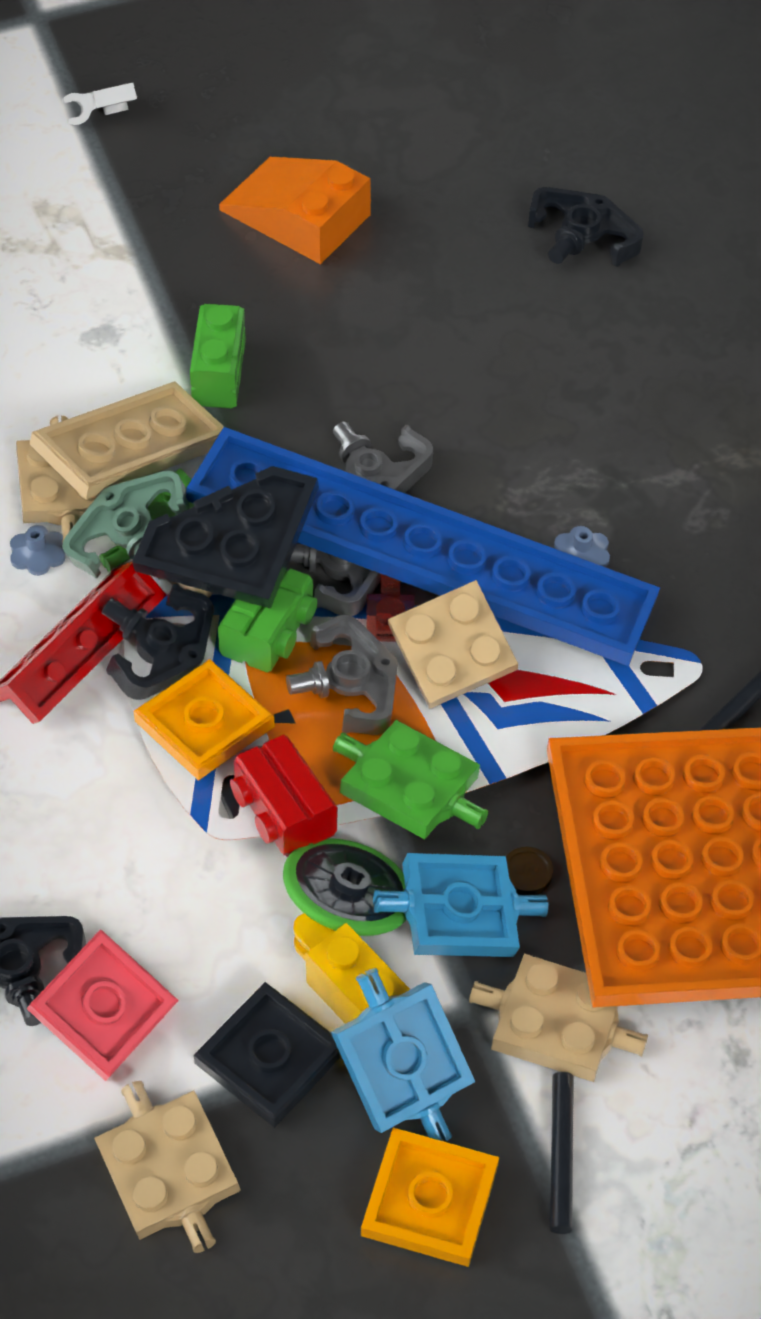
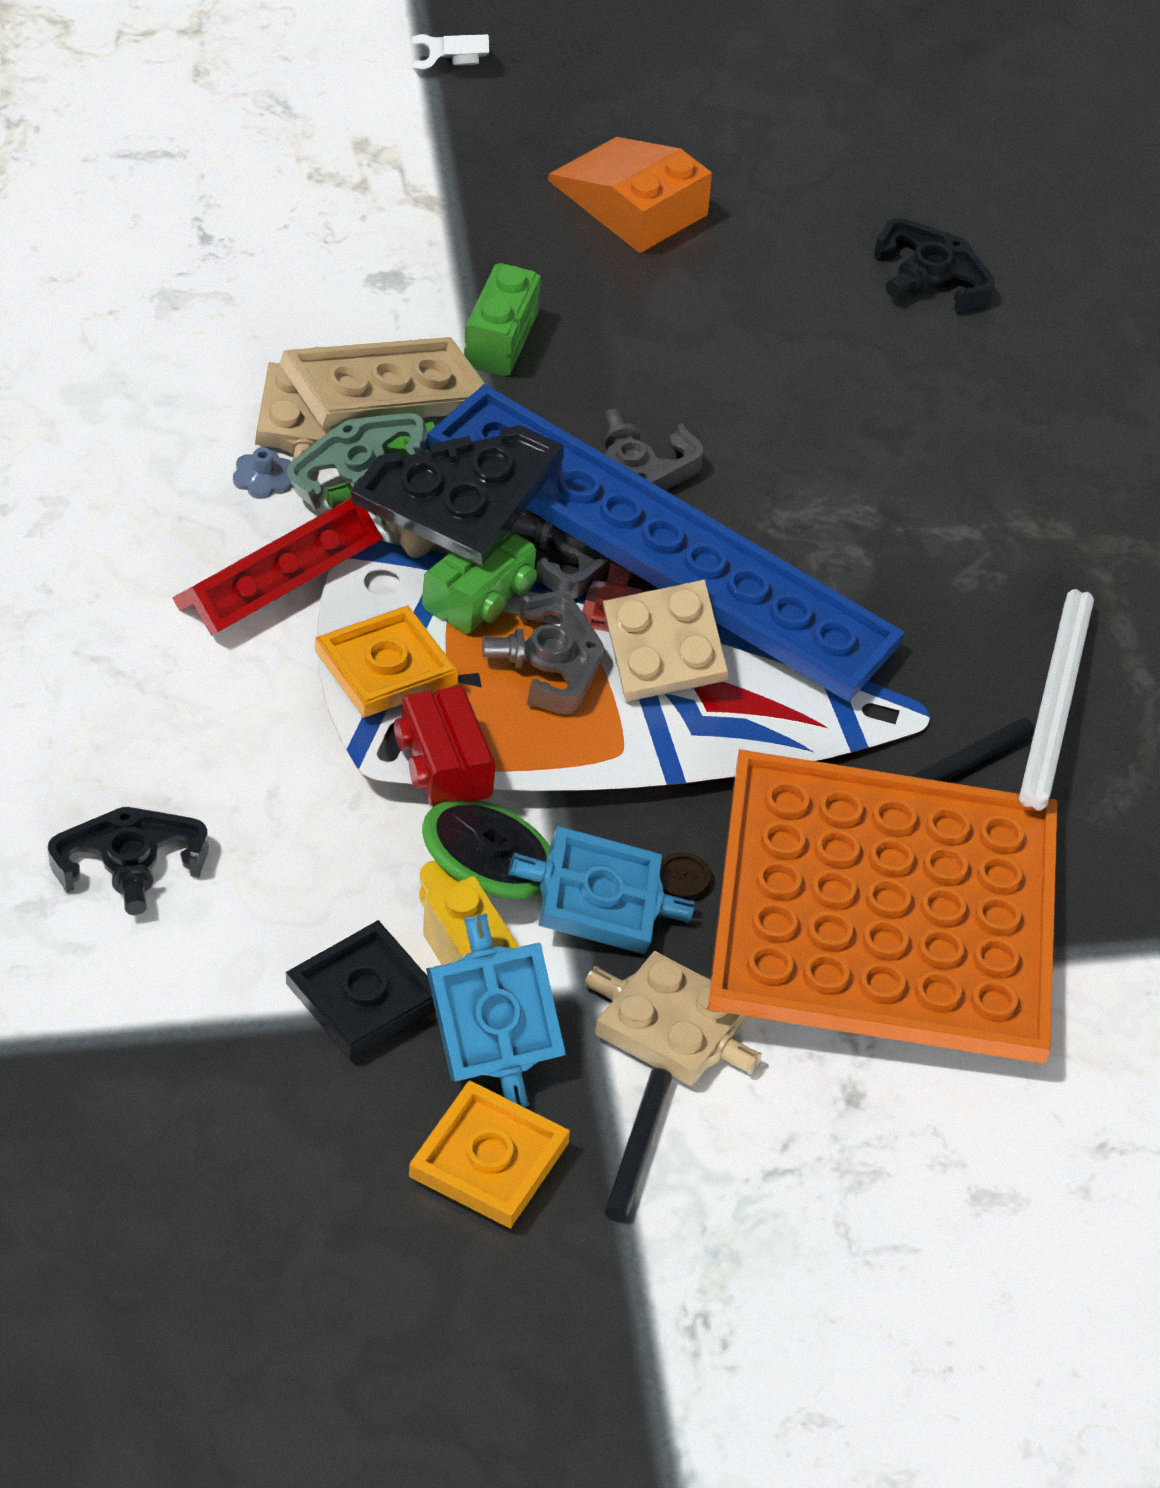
camera: 10 degrees right, 5 degrees down
(102, 1004) = (207, 907): coral plate -> none
(167, 1165) = (231, 1070): tan plate -> none
(169, 648) = (360, 579): black piece -> none
(410, 779) = (583, 760): bright green plate -> none
(585, 545) = (840, 577): sand blue plant -> none

